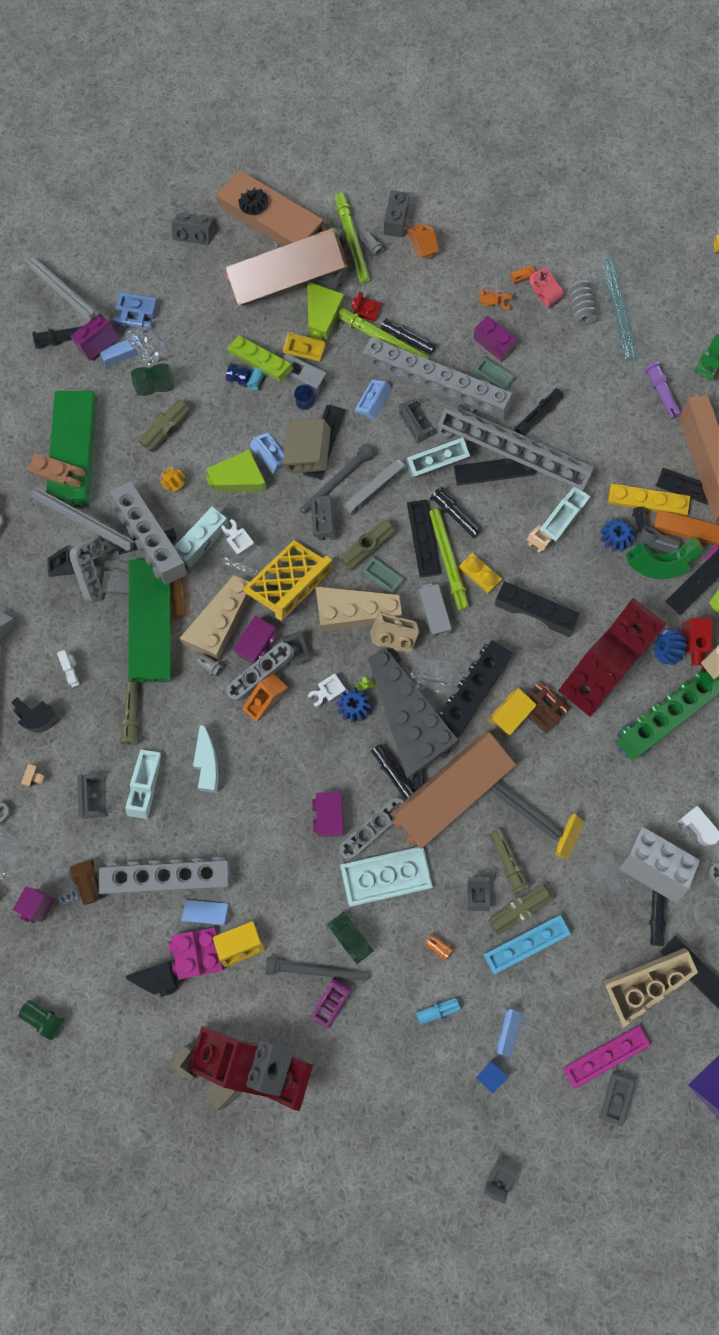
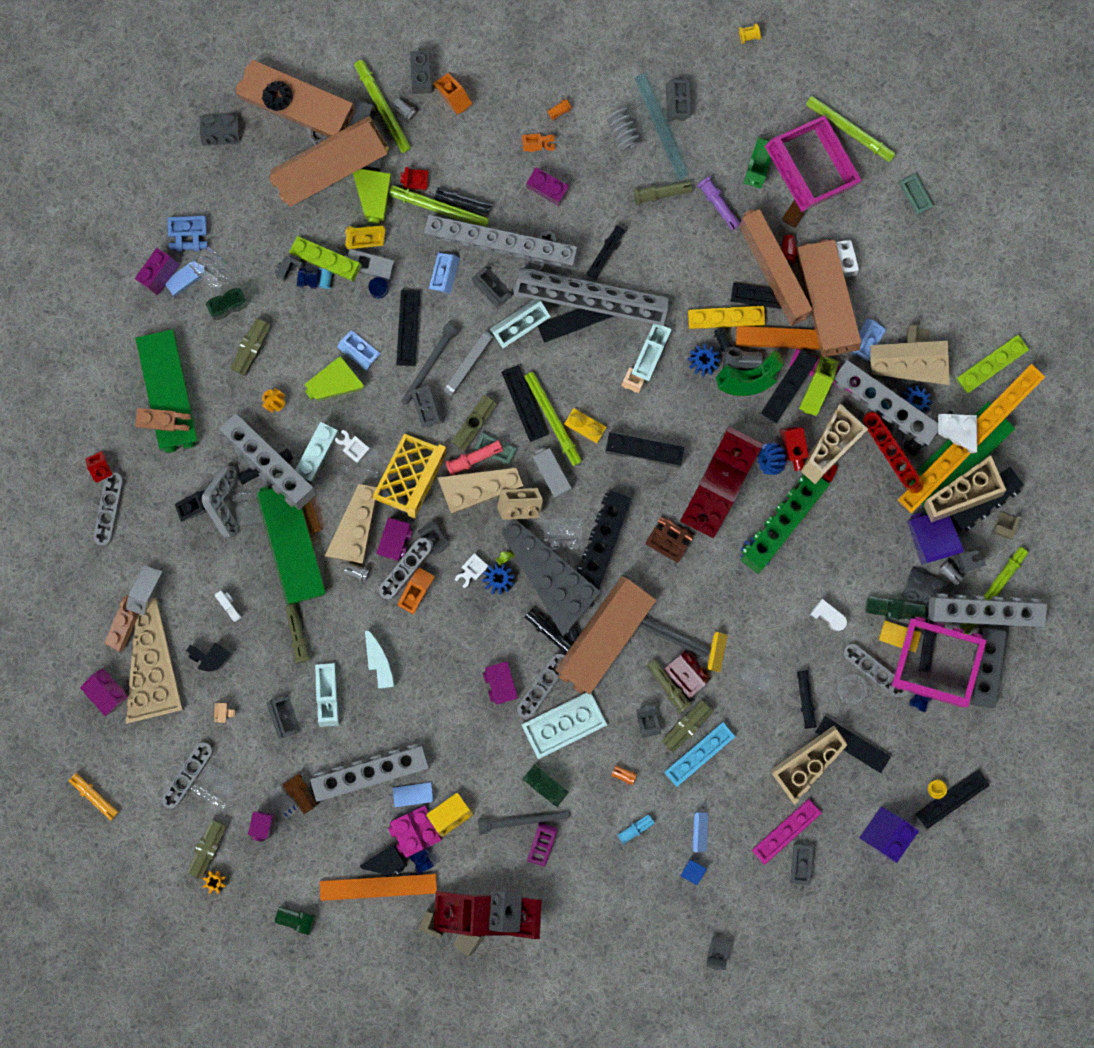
camera: 25 degrees left, 10 degrees up
(52, 337) = (113, 279): black pin -> none
(62, 288) = (109, 228): light grey axle -> none
(82, 519) = (201, 462): light grey axle -> none
(141, 1005) = (378, 887): none -> orange tile
(195, 988) = (421, 861): none -> clear blue wheel
(220, 358) = (283, 268): none -> dark grey bracket
(306, 445) = (393, 338): dark tan brick -> none
(350, 579) = (465, 461): none -> coral pin
(449, 506) = (541, 366): black pin -> none
(493, 373) = (554, 221): sand green tile -> none
(512, 711) = (642, 551): yellow panel -> none
(532, 852) = (688, 673): none -> bracket
(547, 288) = (586, 122): coral piece -> none
(599, 367) = (653, 193): none -> olive pin
(642, 287) = (678, 99): none -> dark grey hinge
(659, 865) = (799, 659): light grey brick -> none

